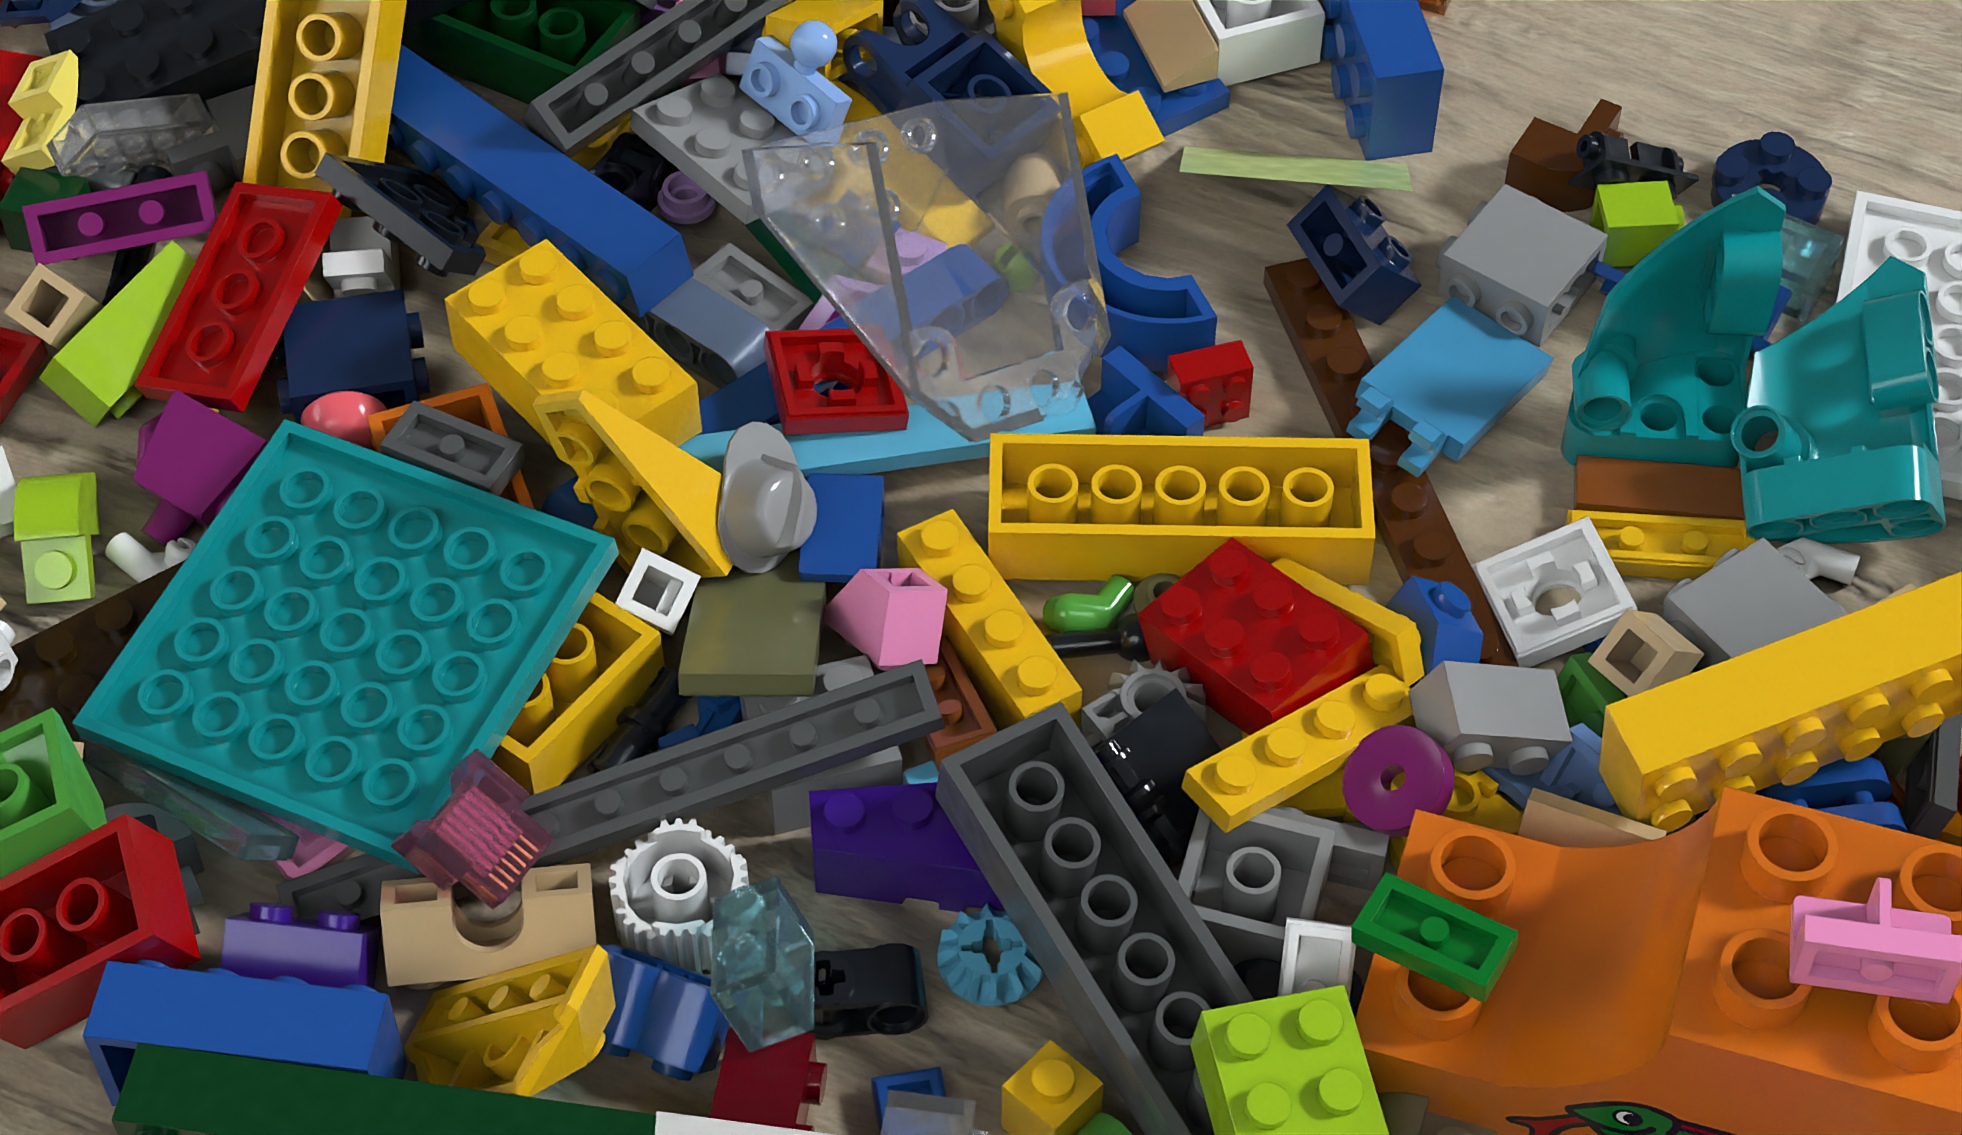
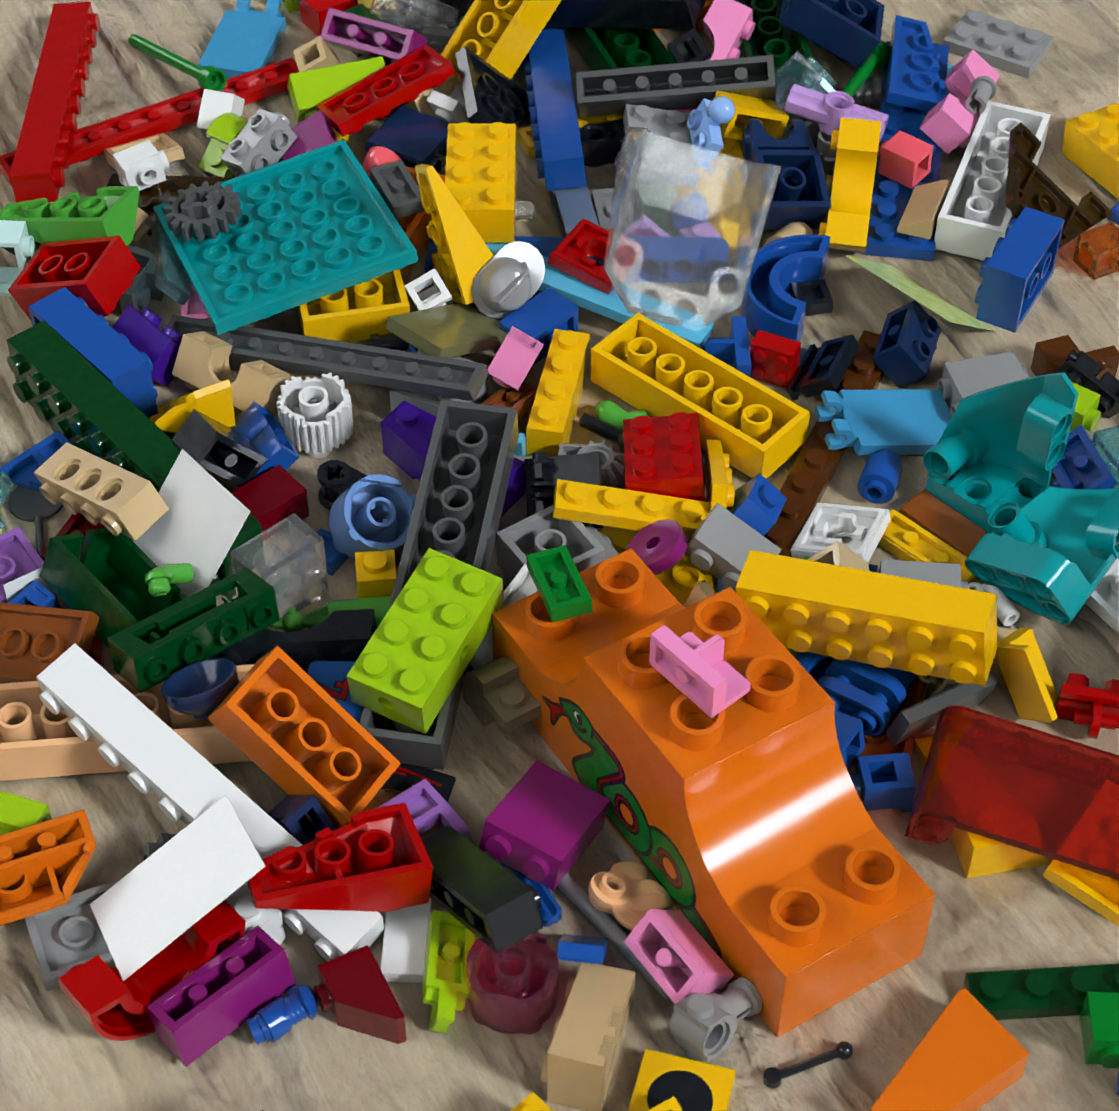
camera: 40 degrees right, 5 degrees down
(128, 510) = (259, 143): none -> light grey brick
(195, 681) = (203, 211): none -> dark grey gear
(477, 833) = (246, 327): clear pink piece -> none
(643, 1064) = (219, 448): none -> black brick
(762, 964) = (305, 443): clear light blue brick -> none
(968, 1013) = (371, 516): none -> medium blue brick
(1153, 253) = (815, 295): none -> black plate
(1286, 356) = (823, 367): none -> black plate
(1510, 473) = (880, 477): none -> blue brick

